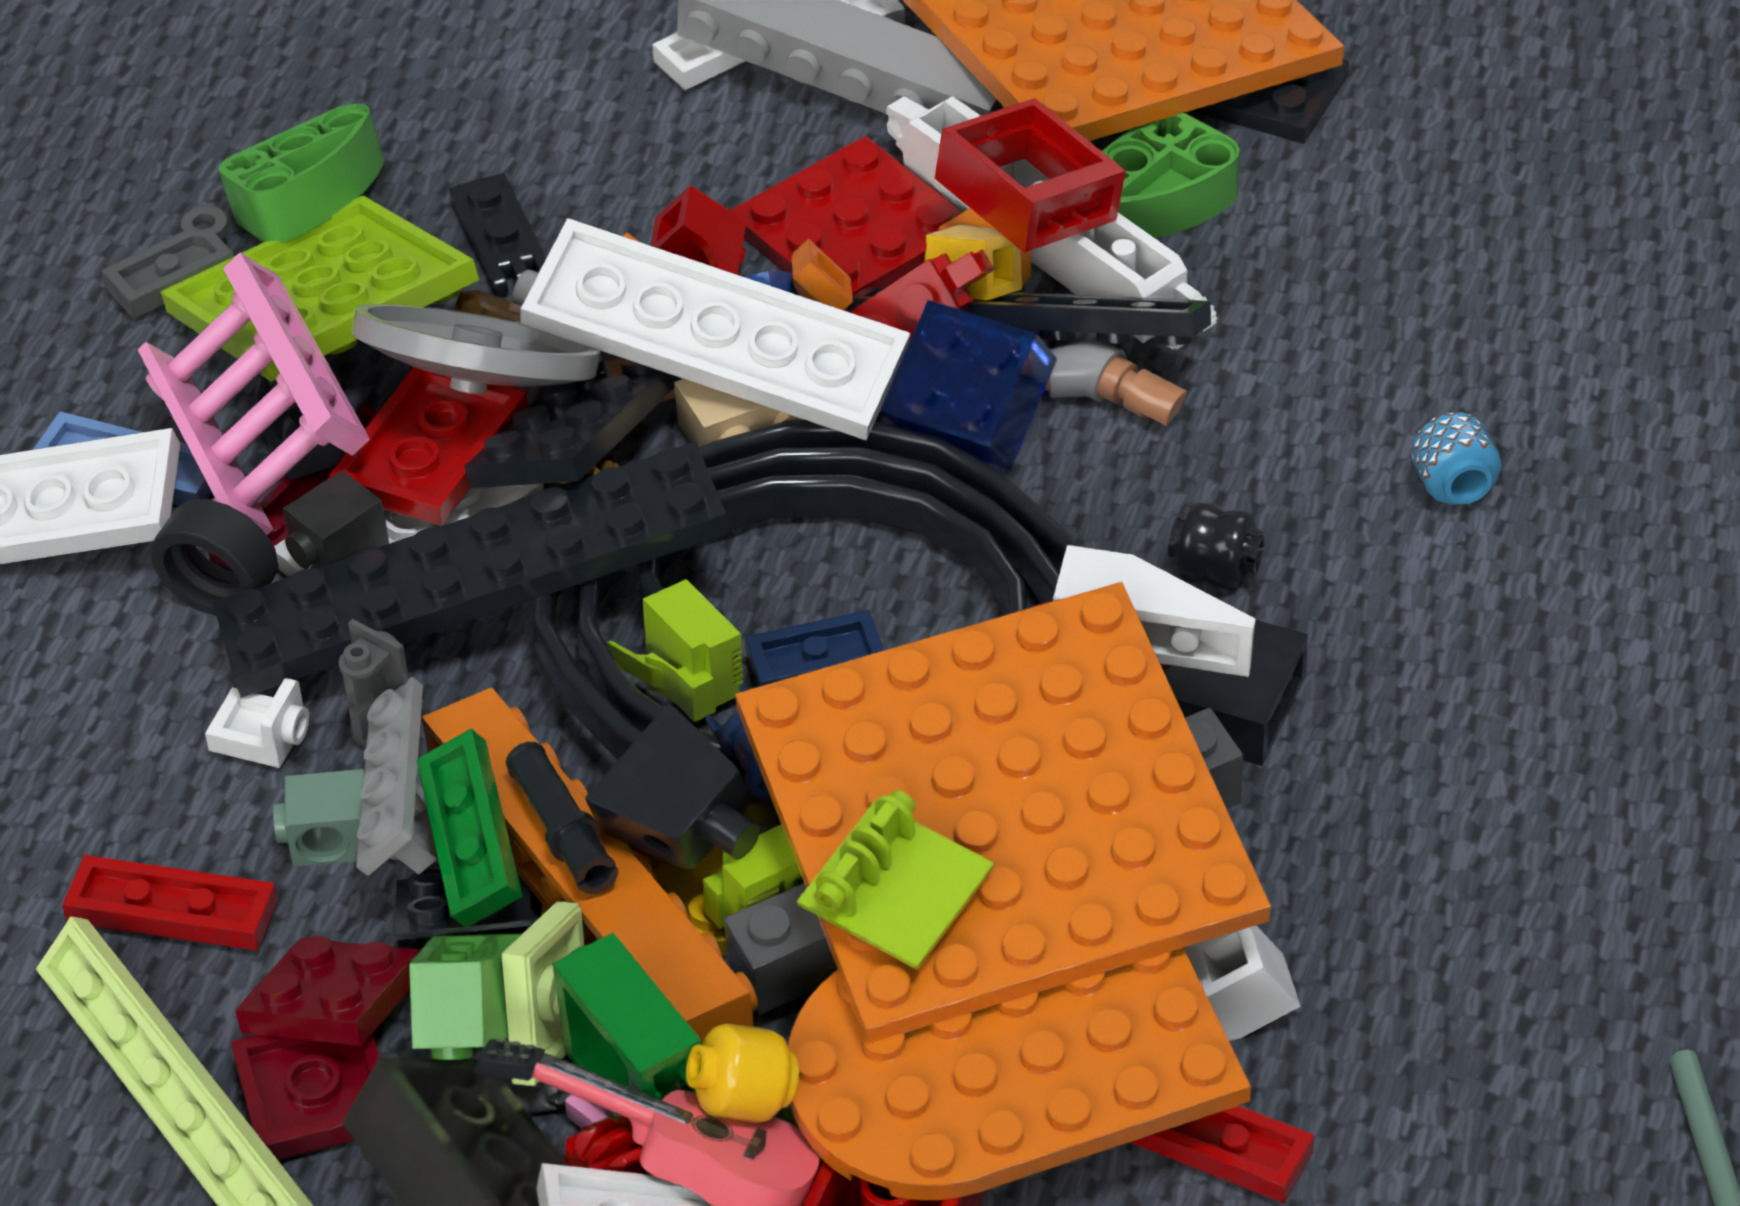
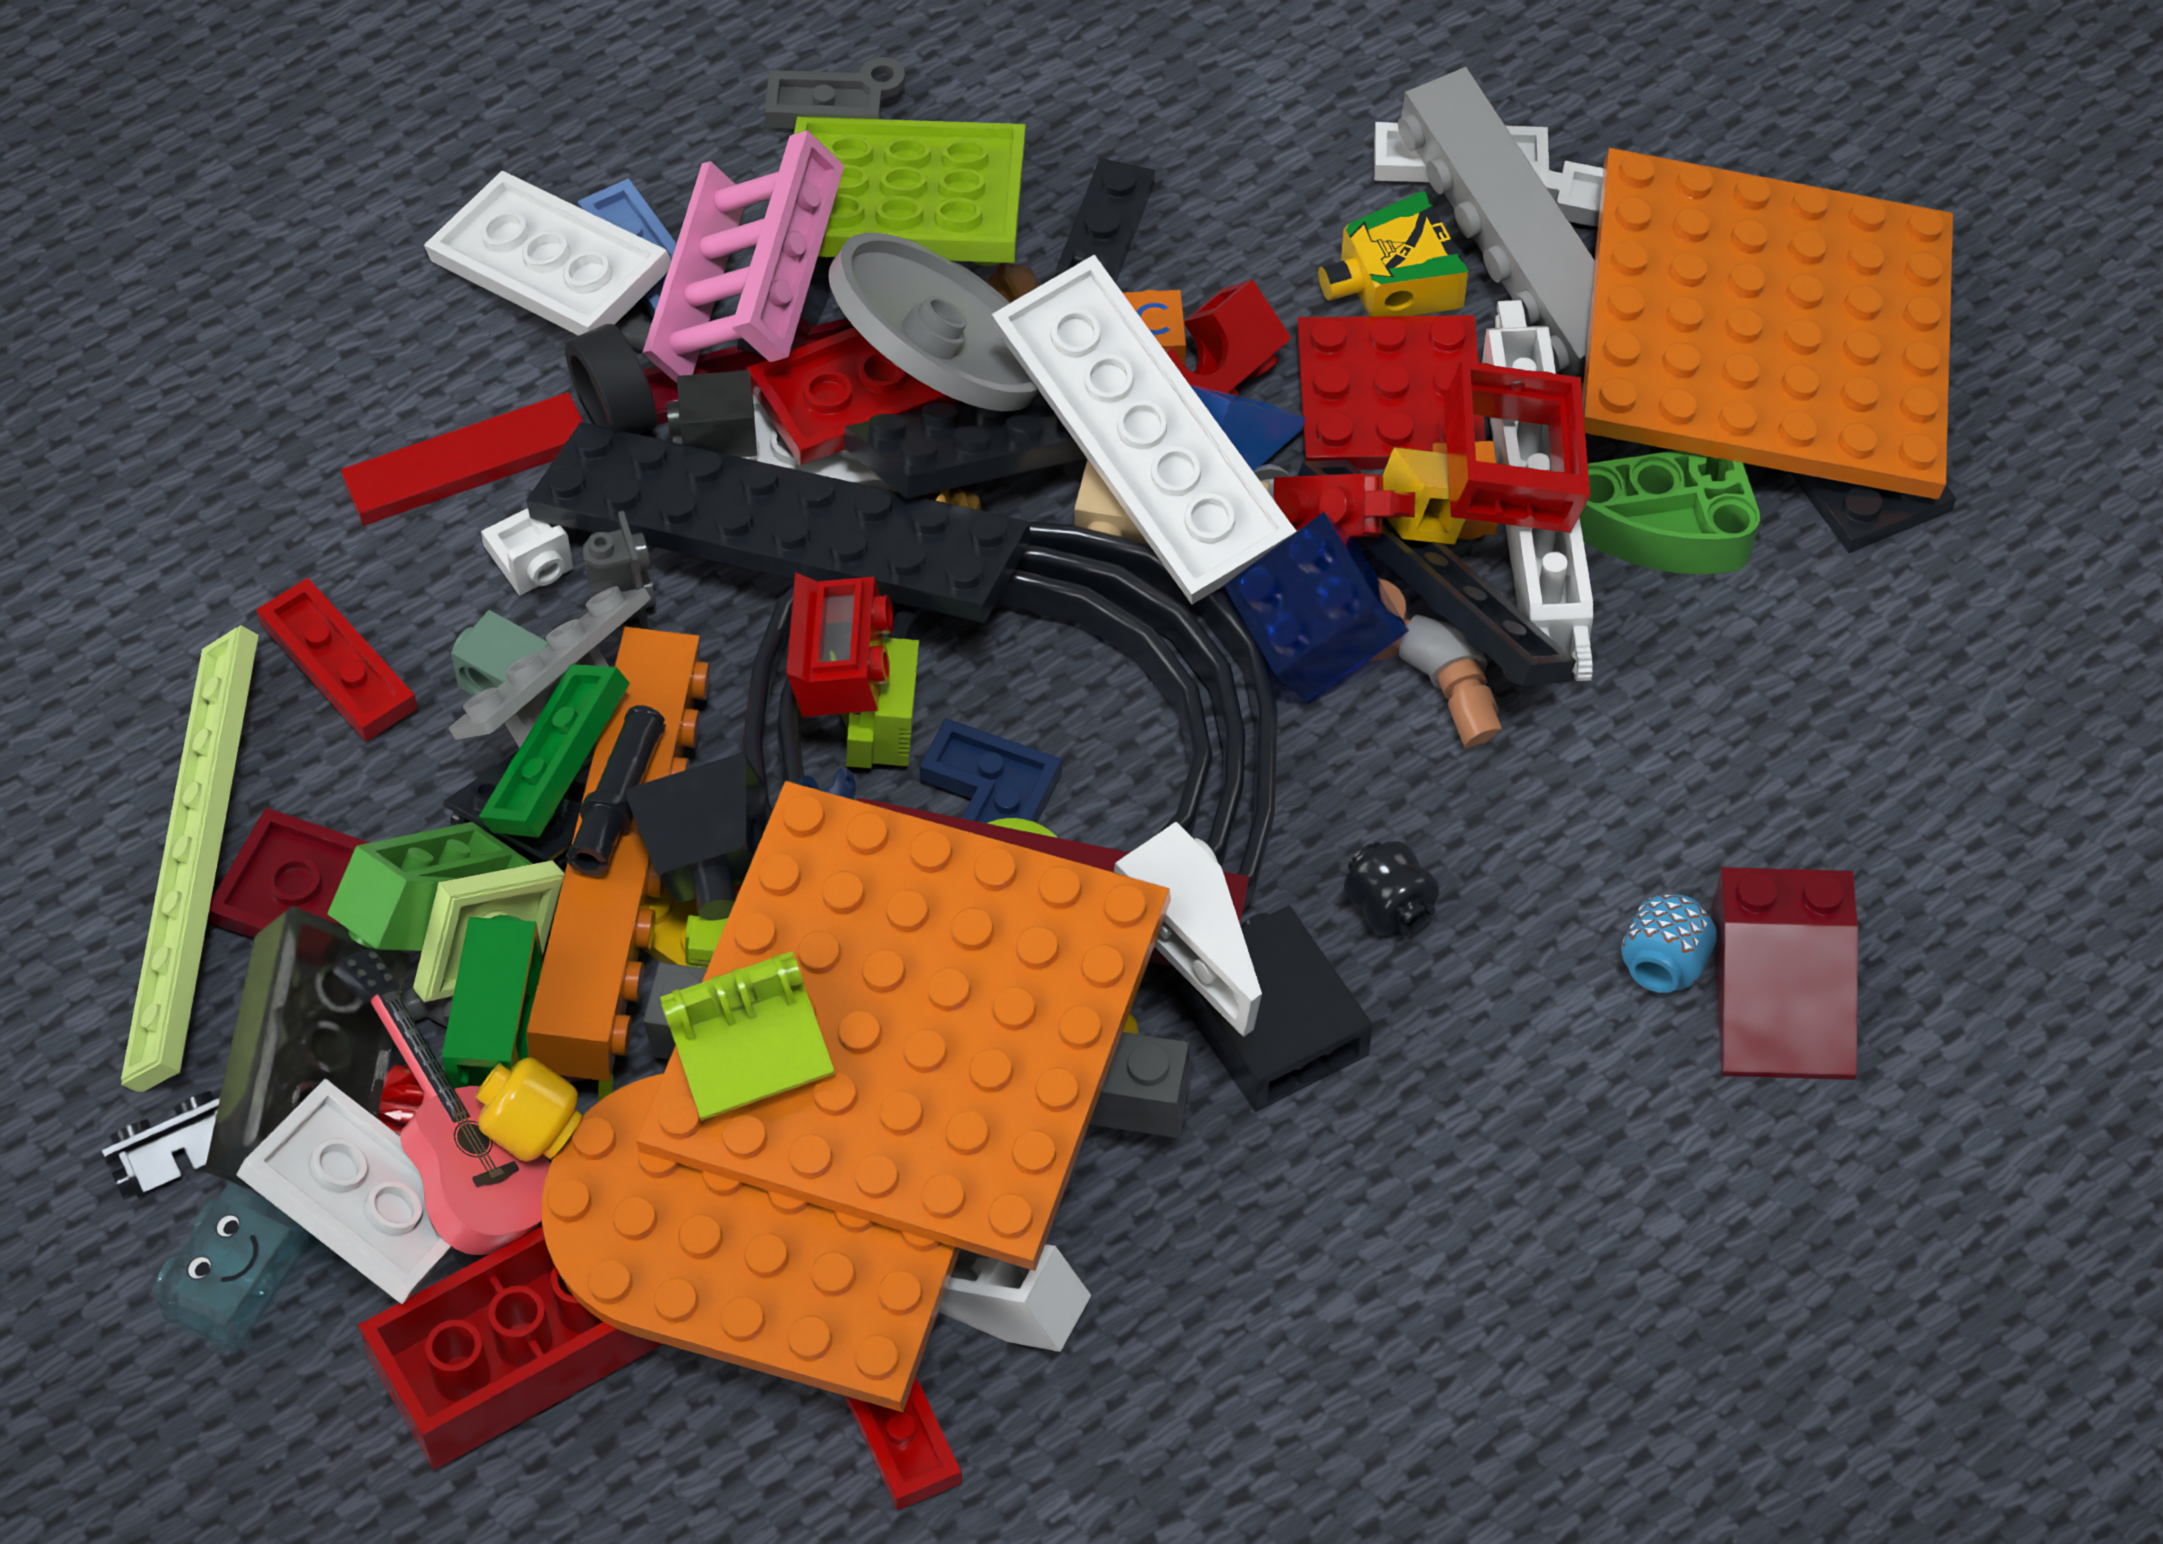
camera: 35 degrees right, 10 degrees up
(122, 698) = (460, 459): none -> red tile
(303, 174) = (994, 77): bright green beam -> none
(328, 991) = (359, 807): dark red plate -> none
(639, 608) = (838, 645): none -> red window
(773, 128) = (1398, 262): none -> torso
(820, 278) = (1290, 431): orange plate -> none
(1558, 427) = (1786, 972): none -> slope

